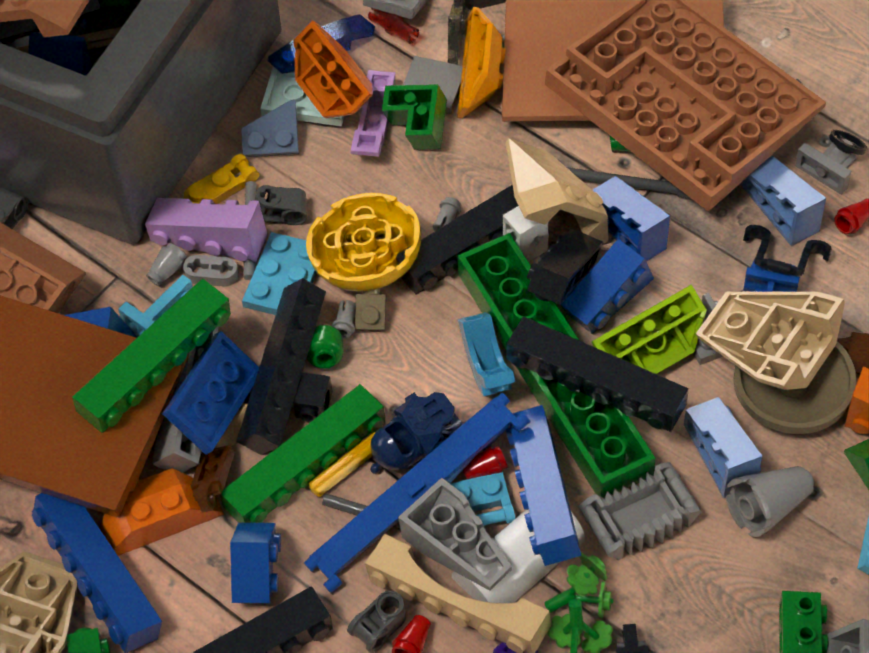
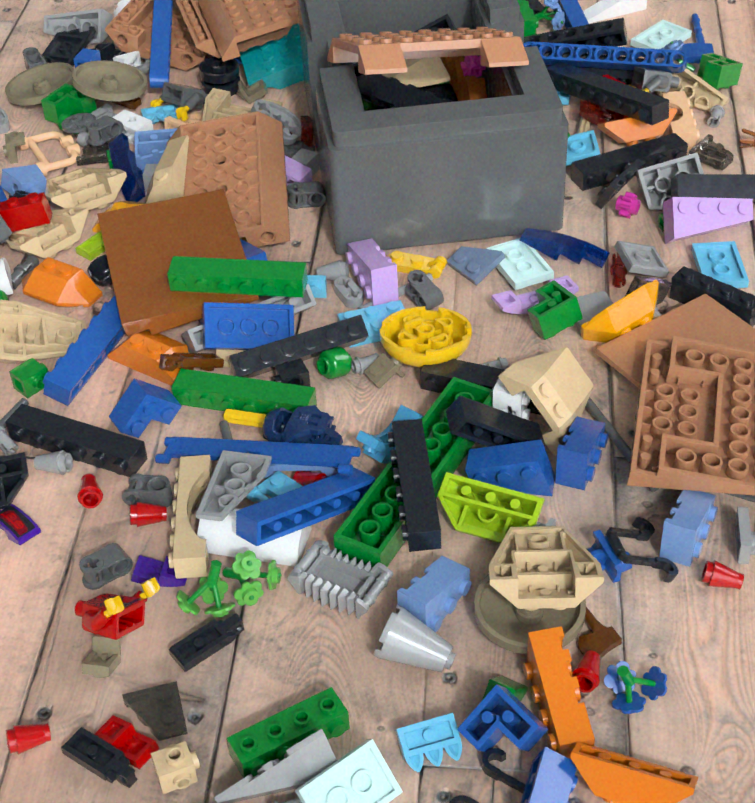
camera: 55 degrees right, 15 degrees down
(329, 73) = (540, 253): orange wedge -> none

